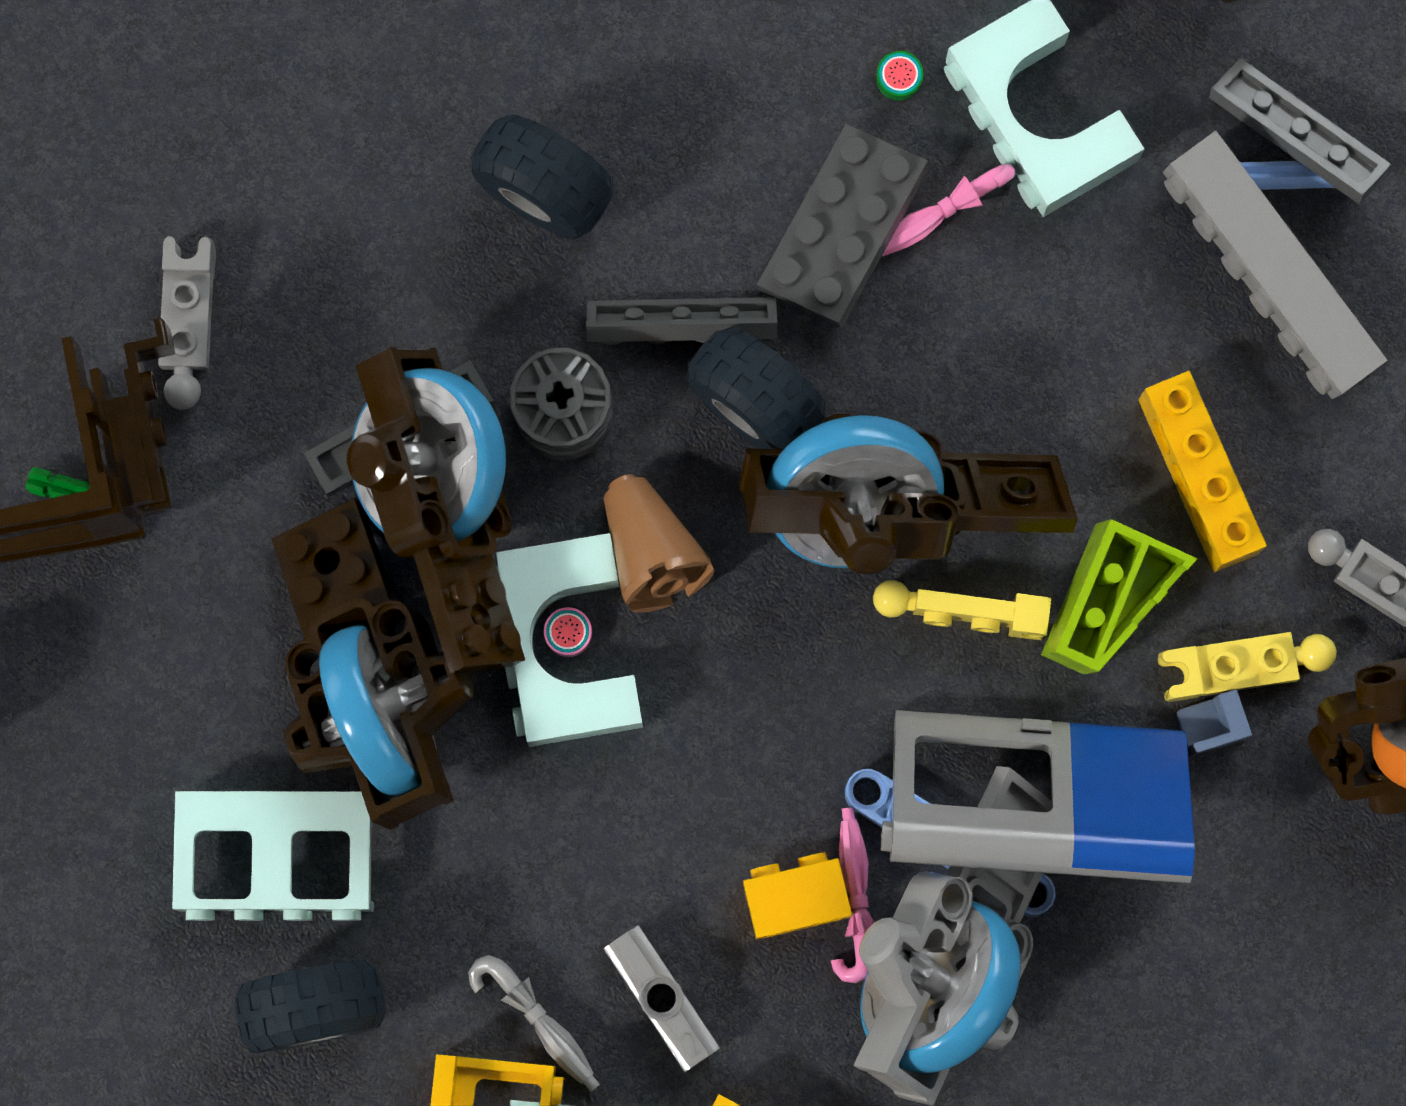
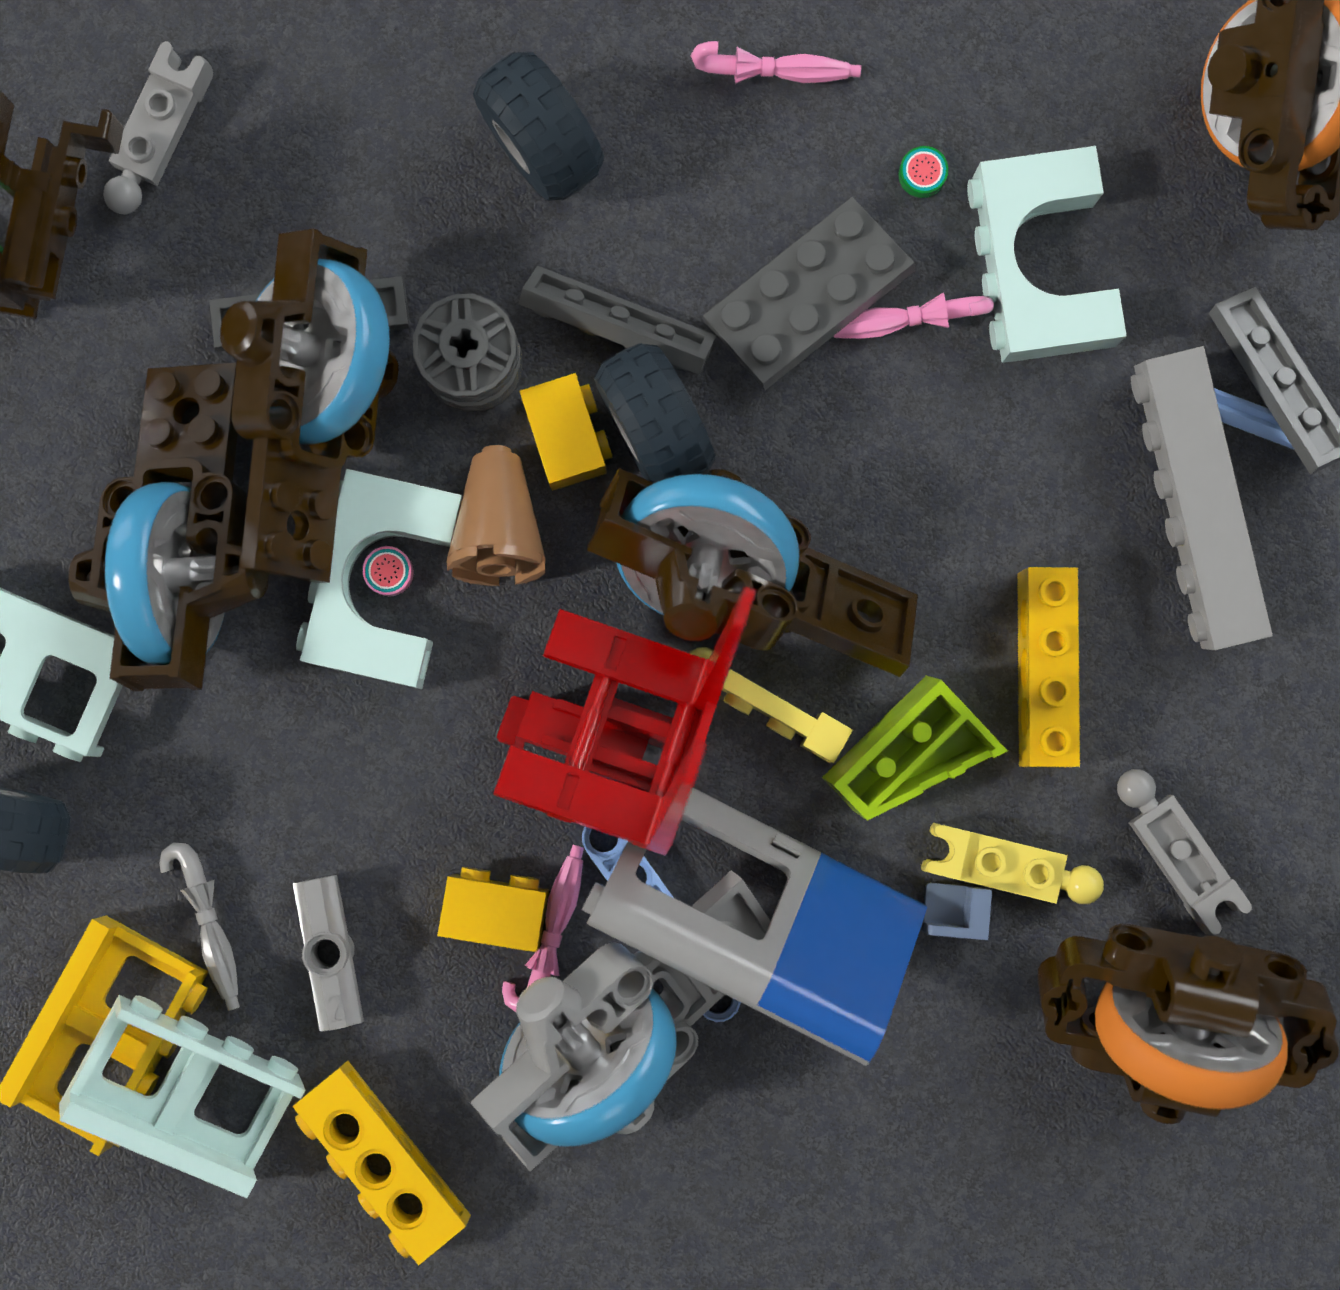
camera: 20 degrees right, 5 degrees up
(677, 439) = (564, 431): none -> yellow brick
(746, 29) = (797, 68): none -> bright pink piece
(834, 696) = (604, 742): none -> red piece

